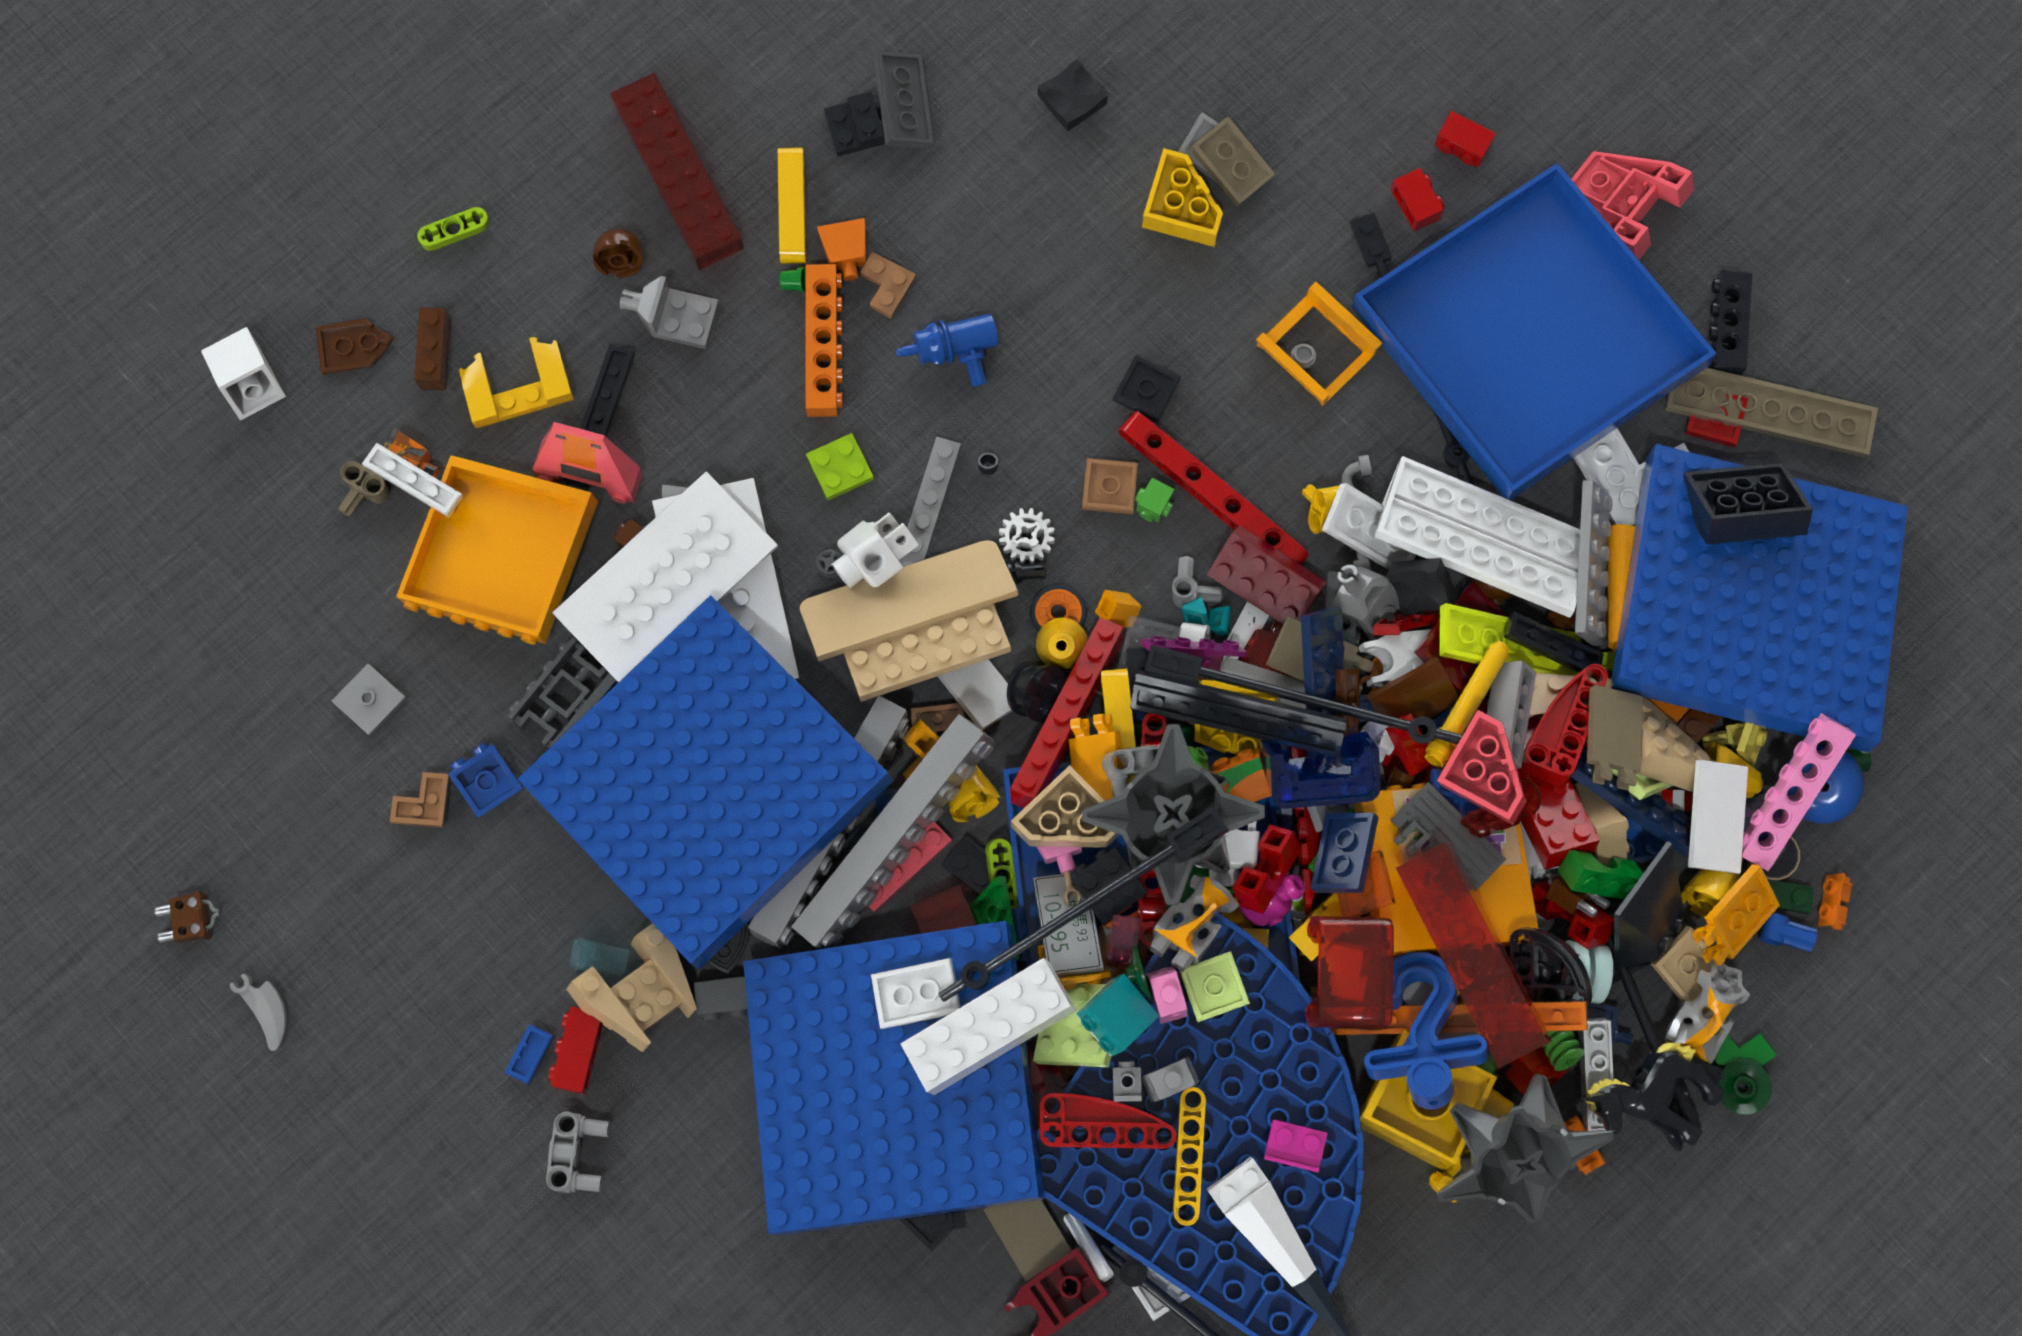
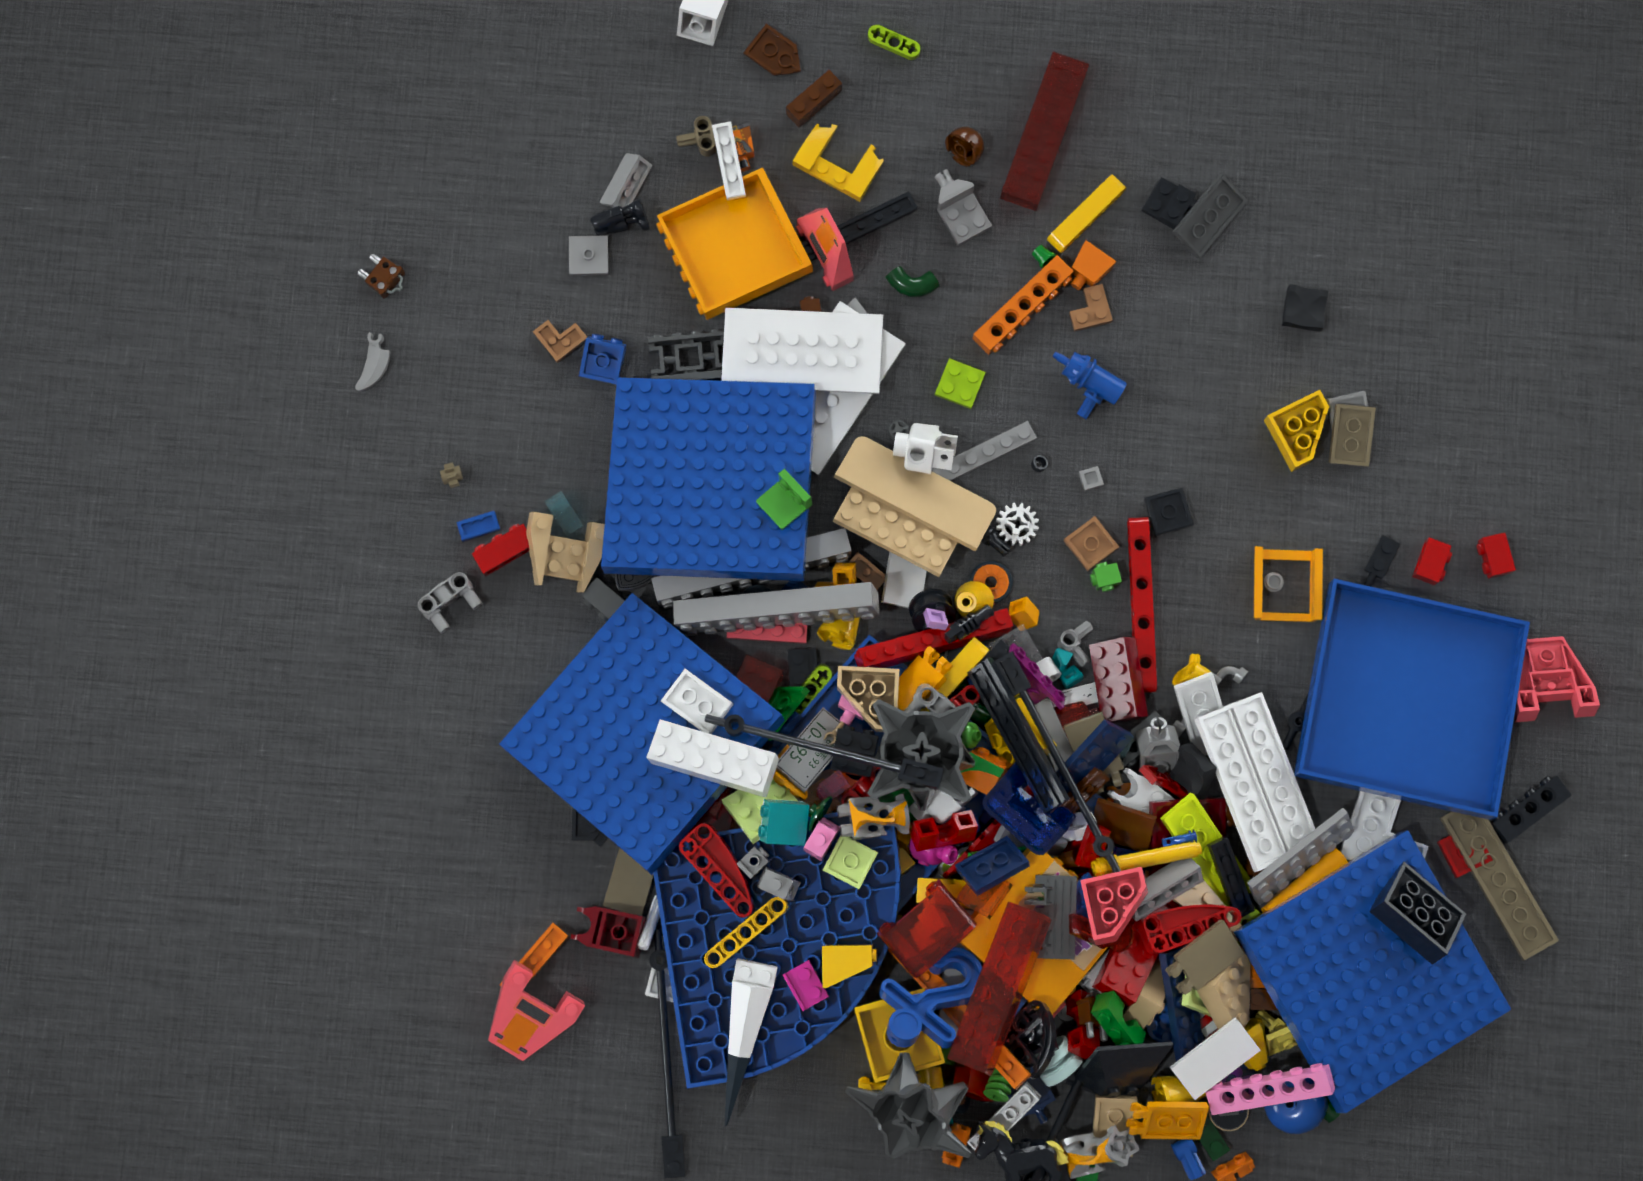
camera: 45 degrees right, 5 degrees up
(334, 598) = (626, 181): none -> light grey panel
(361, 640) = (618, 218): none -> black piece
(452, 1033) = (451, 475): none -> dark tan gear
(703, 424) = (912, 286): none -> dark green cylinder
(799, 722) = (784, 500): none -> bright green bracket
(1047, 429) = (1091, 478): none -> light grey plate
(1050, 690) = (935, 619): none -> lavender plate
(1084, 664) = (968, 624): none -> black hinge
(1309, 1083) = (845, 961): none -> yellow slope
(1483, 644) = (1180, 839): none -> blue piece

